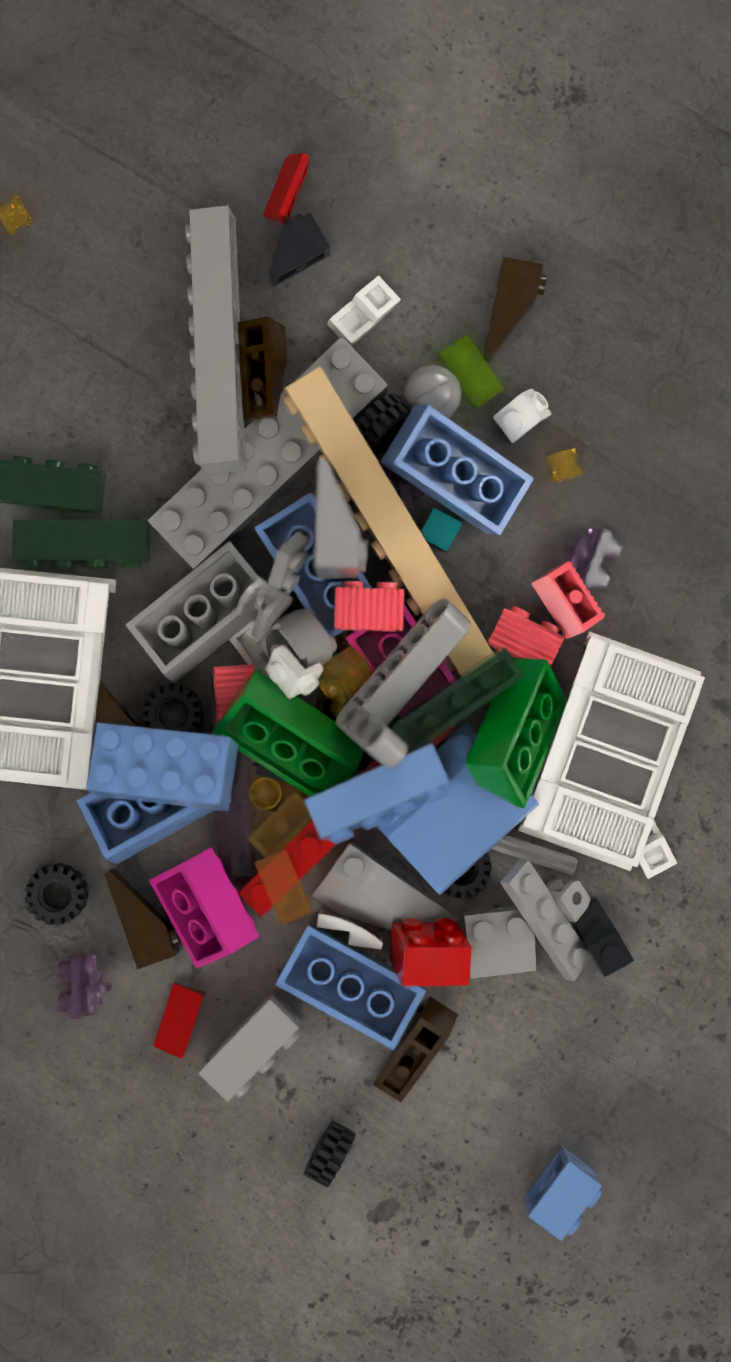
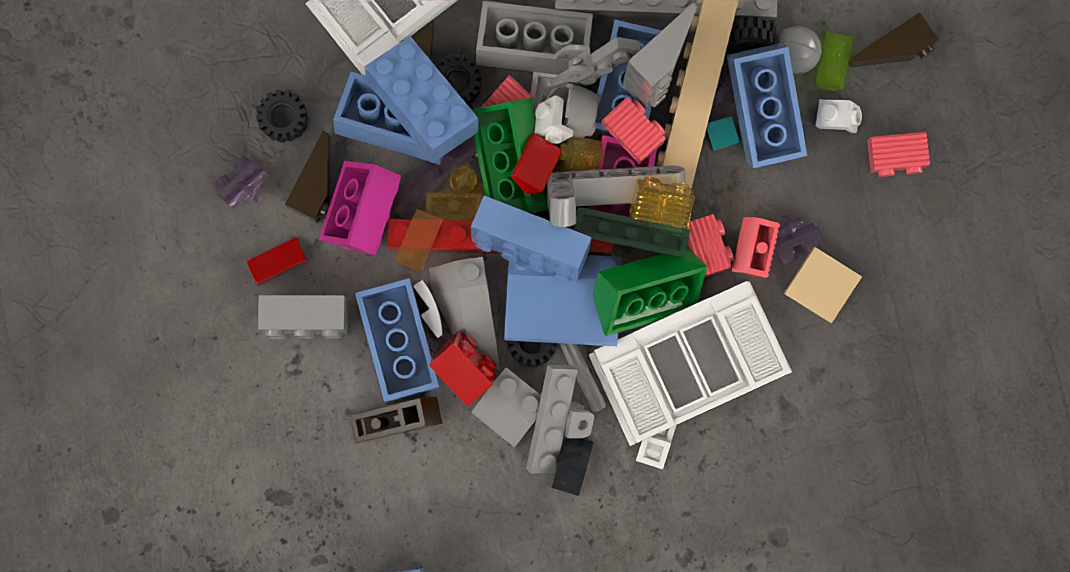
camera: 40 degrees right, 5 degrees down
(318, 725) = (535, 164): none -> red slope
(329, 1153) = (283, 426): black tyre -> none
(458, 648) = (662, 202): none -> clear yellow brick
(564, 465) = (833, 169): clear yellow wheel -> none
(605, 395) = (898, 153): none -> coral brick
(654, 573) = (822, 284): none -> tan tile

